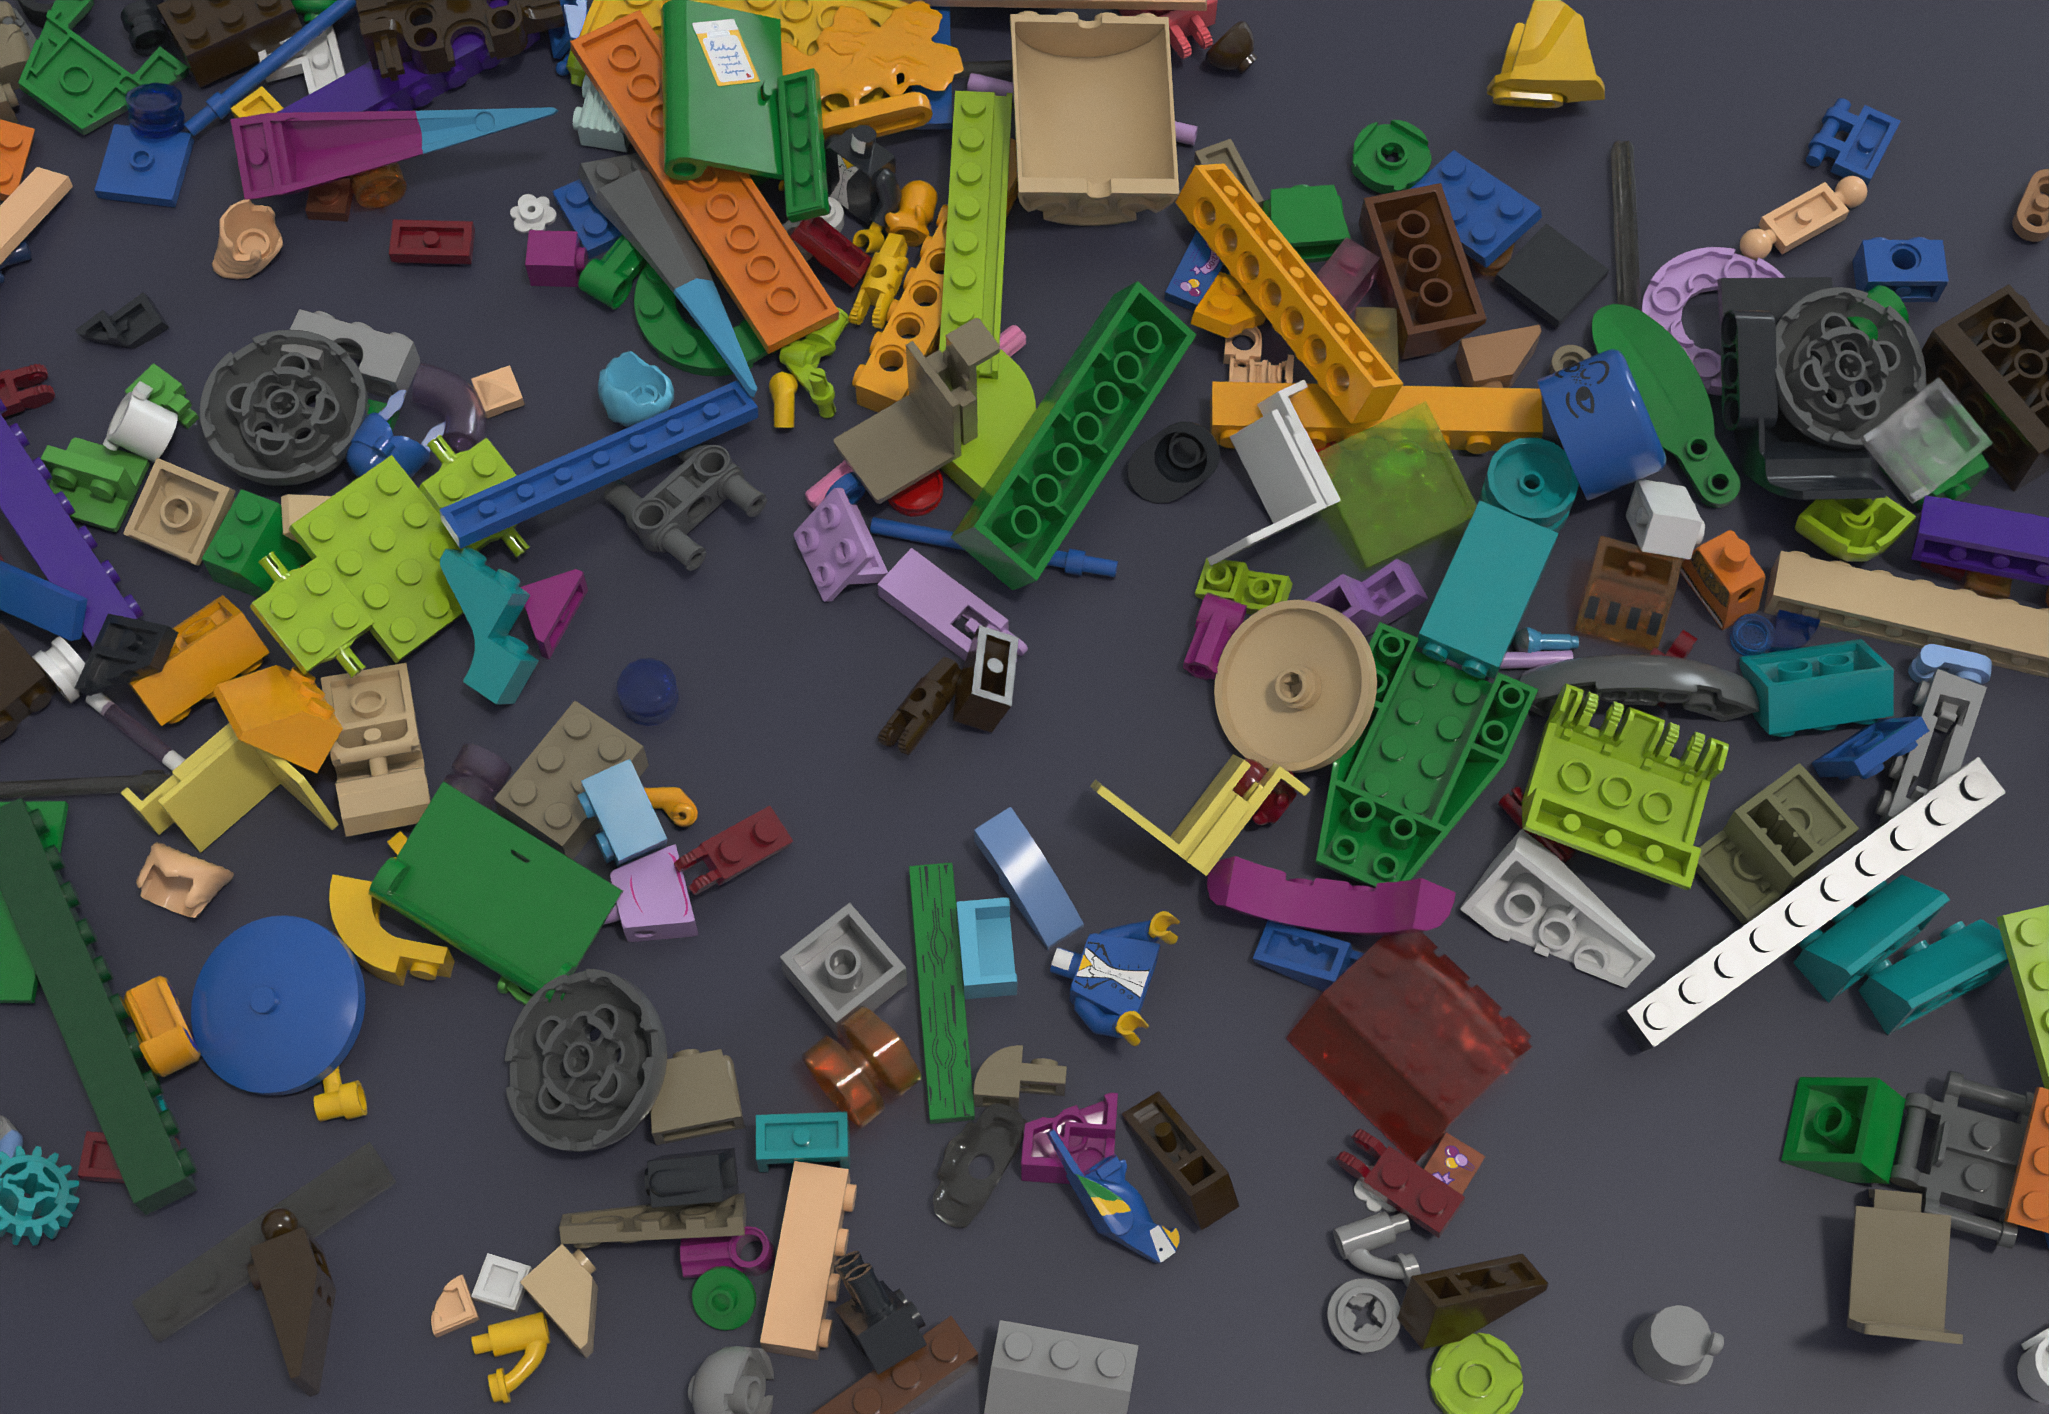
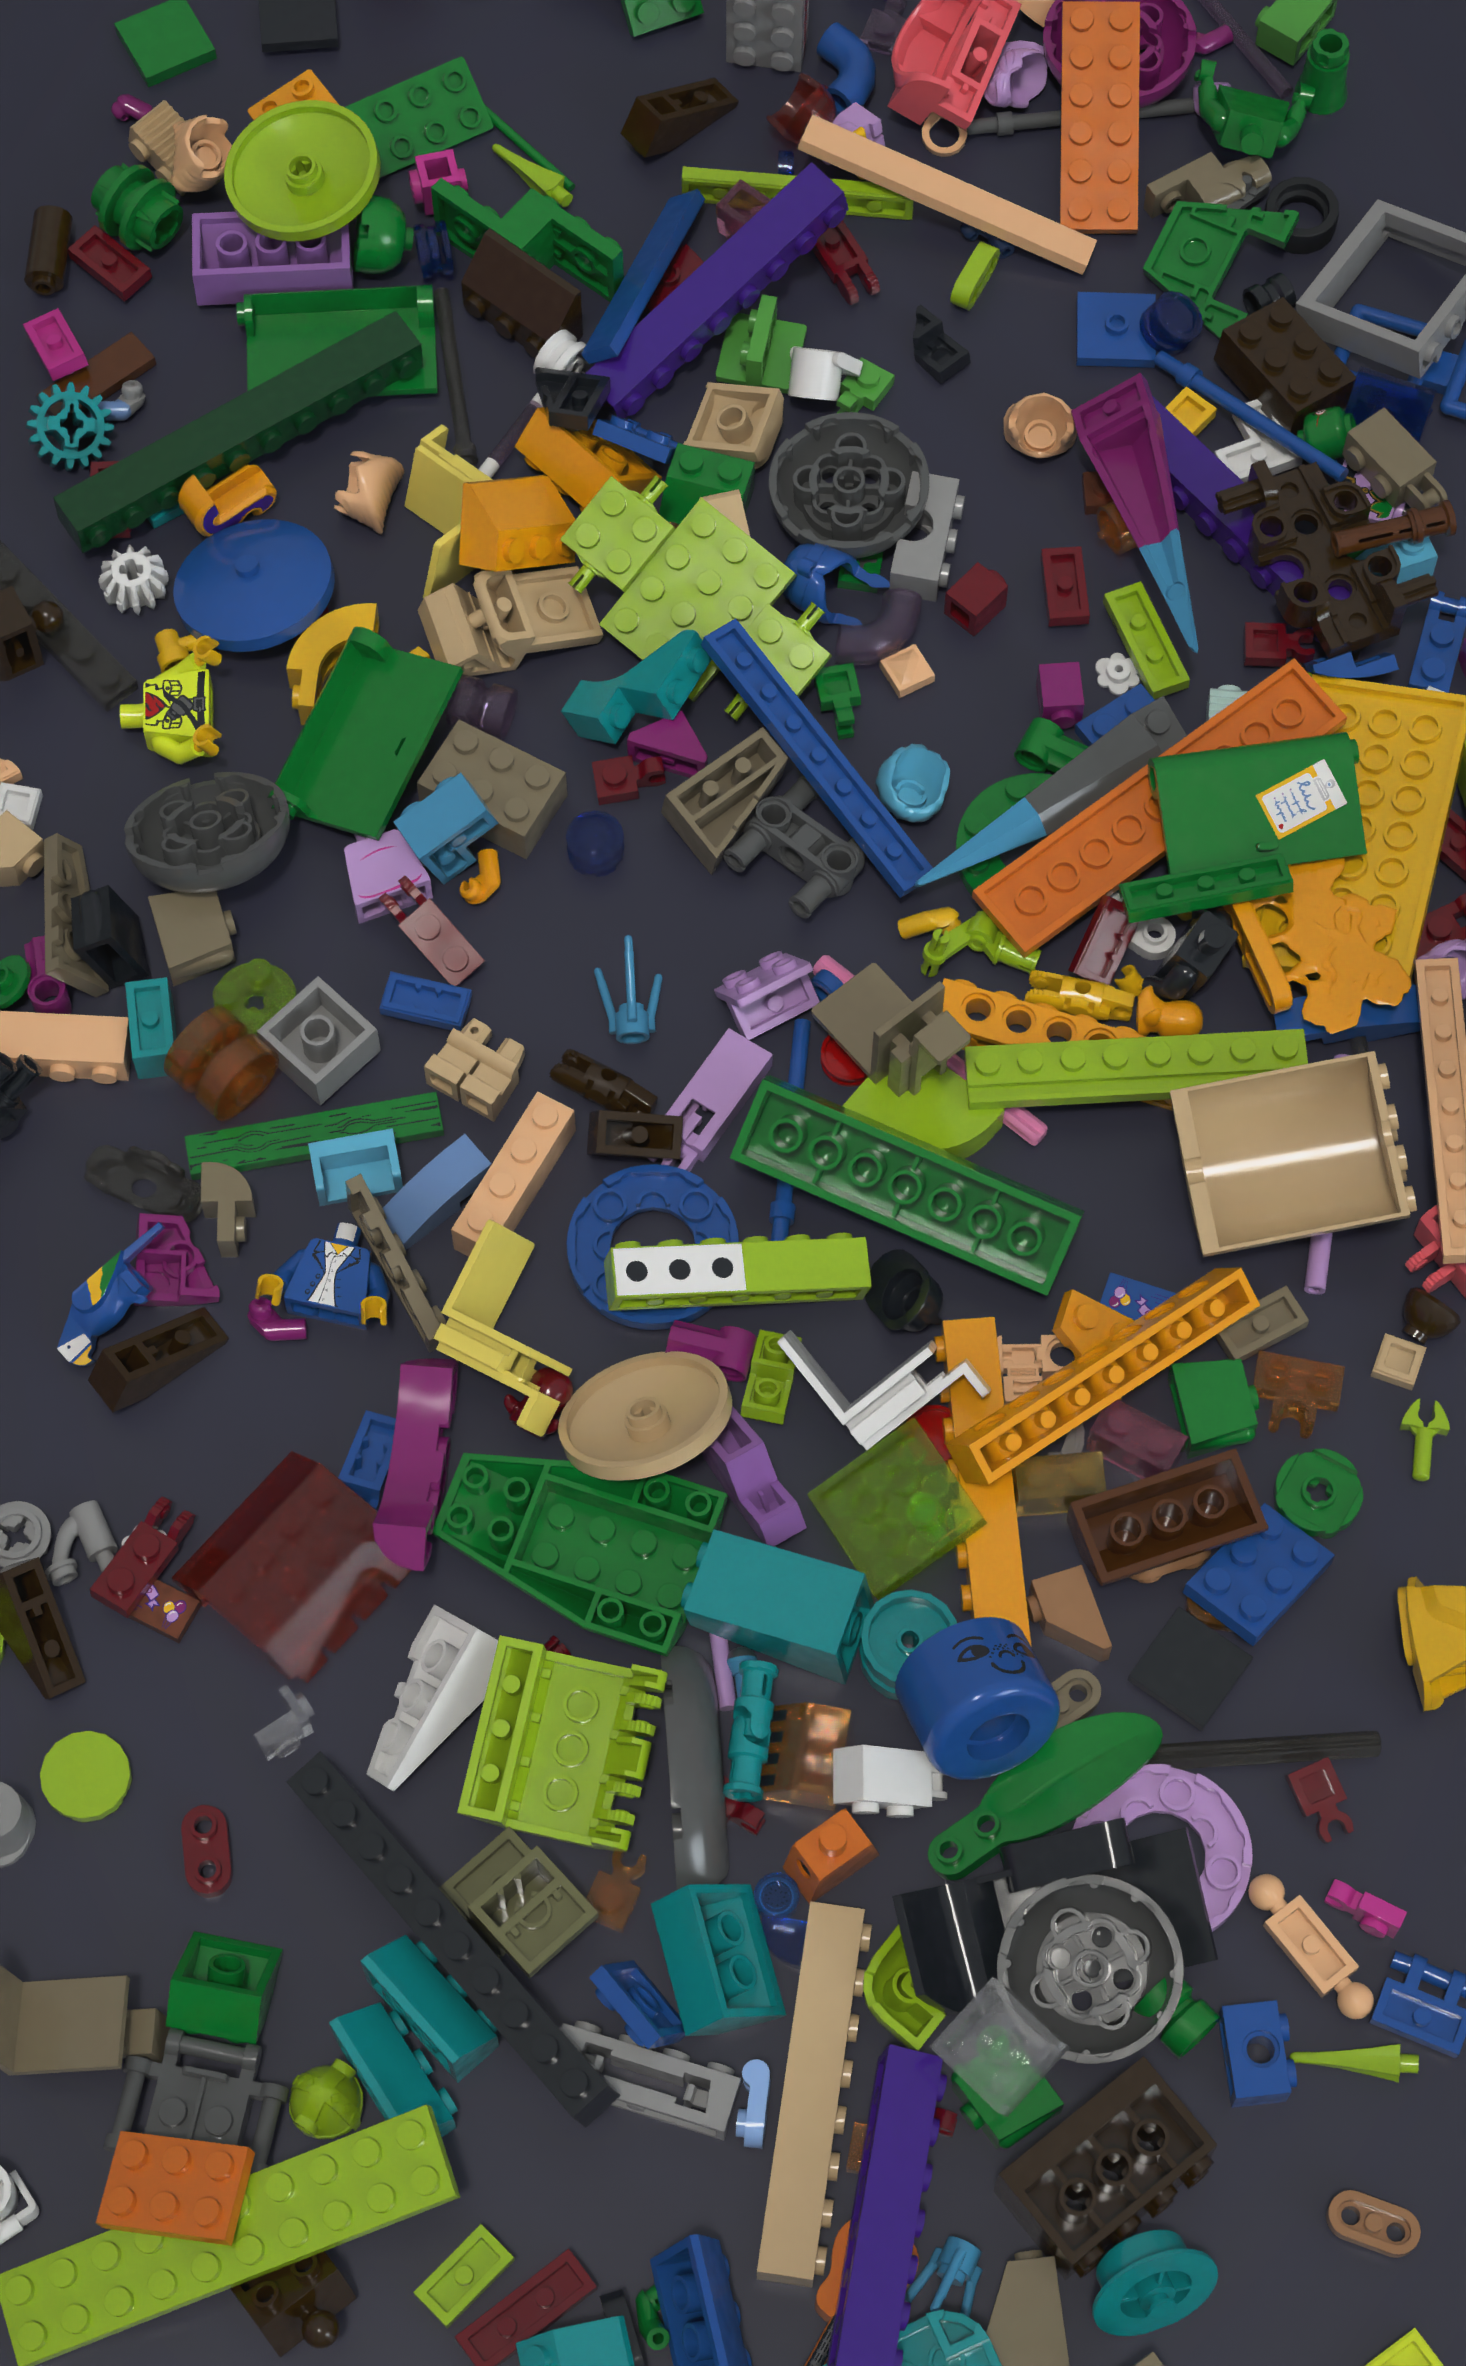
camera: 85 degrees right, 0 degrees up
(53, 277) = (975, 275): none -> lime beam
(186, 596) = (633, 437): none -> blue plate
(251, 1146) = (133, 579): none -> white gear
(421, 1094) = (179, 707): none -> torso
(432, 317) = (976, 598): none -> dark red brick
(505, 180) = (1146, 640): none -> lime plate
(520, 450) = (839, 691): none -> green plate
(531, 80) = (1270, 645): none -> dark red plate
(574, 664) = (619, 778): none -> dark red plate
(622, 561) = (720, 799): none -> dark tan wedge
(756, 1030) = (250, 980): none -> clear neon green plate
(805, 869) = (425, 1001): none -> blue plate
(853, 674) = (631, 1022): none -> dark azure plant
(892, 826) = (474, 1072): none -> tan hips
(1002, 782) = (517, 1171): none -> light nougat brick
(1077, 919) = (391, 1257): none -> dark tan wing
(1118, 625) = (621, 1197): none -> blue plate
(1149, 597) = (736, 1272): none -> lime brick
(1152, 1044) = (271, 1325): none -> magenta arm
(1268, 83) = (1398, 1361): none -> tan tile
(1293, 158) = (1297, 1388): none -> clear orange plate
(1338, 73) = (1424, 1436): none -> lime bar
(1590, 1056) = (285, 1733): none -> clear bracket
(1615, 631) = (750, 1731): none -> teal piece
(1623, 1256) = (85, 1776): none -> lime tile
(1668, 195) = (1318, 1791): none -> dark red plate
(1704, 1142) = (207, 1849): none -> dark red plate
(1750, 771) = (614, 1894): none -> clear orange plate
(1778, 166) = (1373, 1913): none -> dark pink plate
(1901, 184) = (1376, 2061): none -> lime piece
(1954, 1041) = (326, 2101): none -> lime helmet

